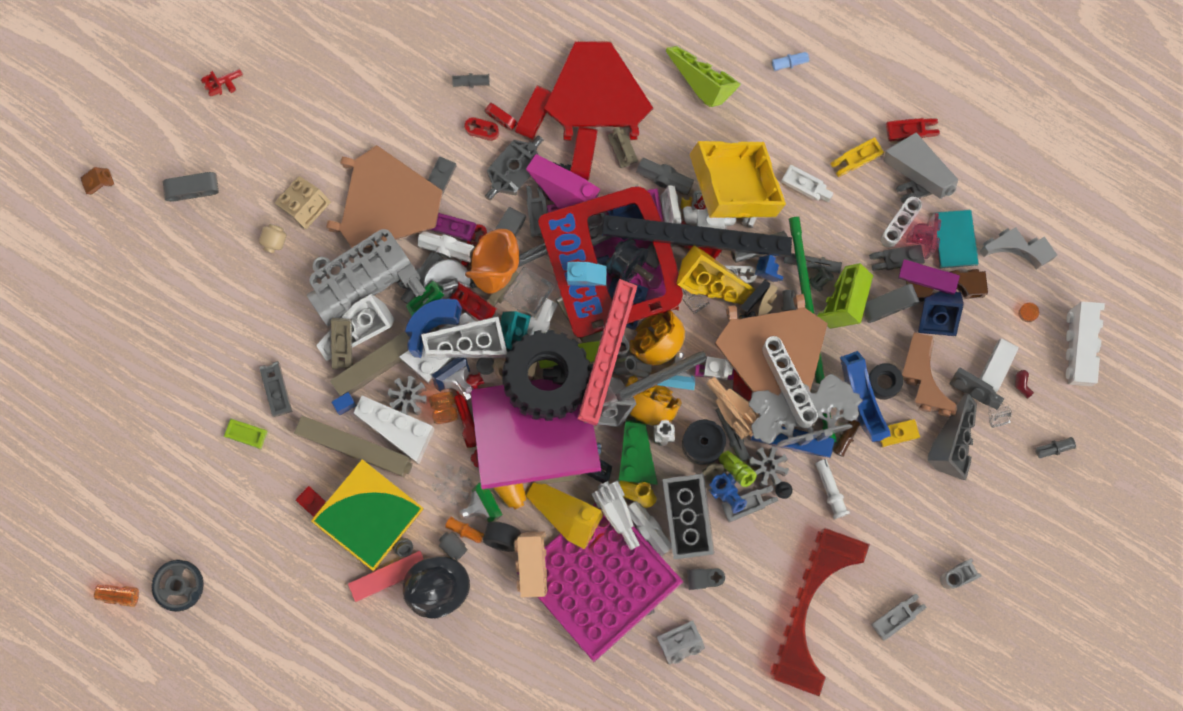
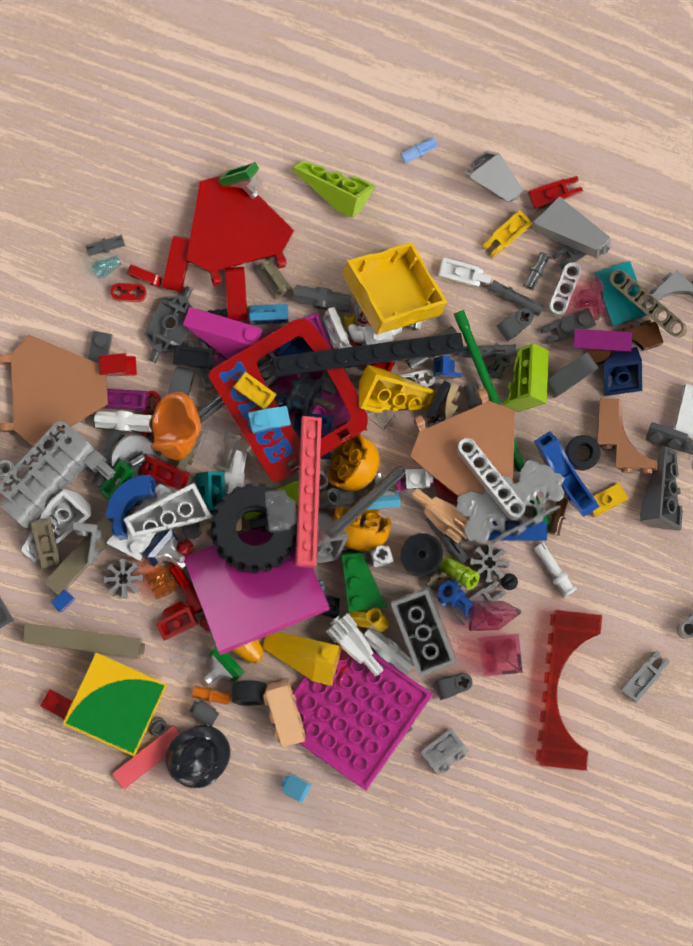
camera: 15 degrees left, 5 degrees up
(381, 338) = (84, 530): none -> light grey bracket
(398, 428) = (124, 613): white wedge -> none
(448, 449) = (176, 620): none -> red slope
(454, 192) = (117, 365): none -> red slope
(466, 100) = (105, 267): none -> clear light blue cone
(524, 641) = (295, 787): none -> medium azure slope
(527, 201) = (193, 356): none -> black tile
(575, 362) = (280, 511): none -> clear slope
(579, 243) = (255, 391): none -> yellow plate
(610, 179) = (269, 314): none -> dark azure bracket
(616, 47) = (243, 178): none -> green piece
(759, 518) = (491, 615): none -> clear pink slope
(759, 559) = (500, 655): none -> clear pink slope
(843, 244) = (513, 325): none -> dark grey piece
(851, 218) = (511, 295): none -> dark grey pin
(858, 100) = (494, 175): none -> light grey slope
(878, 198) = (536, 271): none -> dark grey pin
(983, 260) = (656, 308): none -> dark tan beam

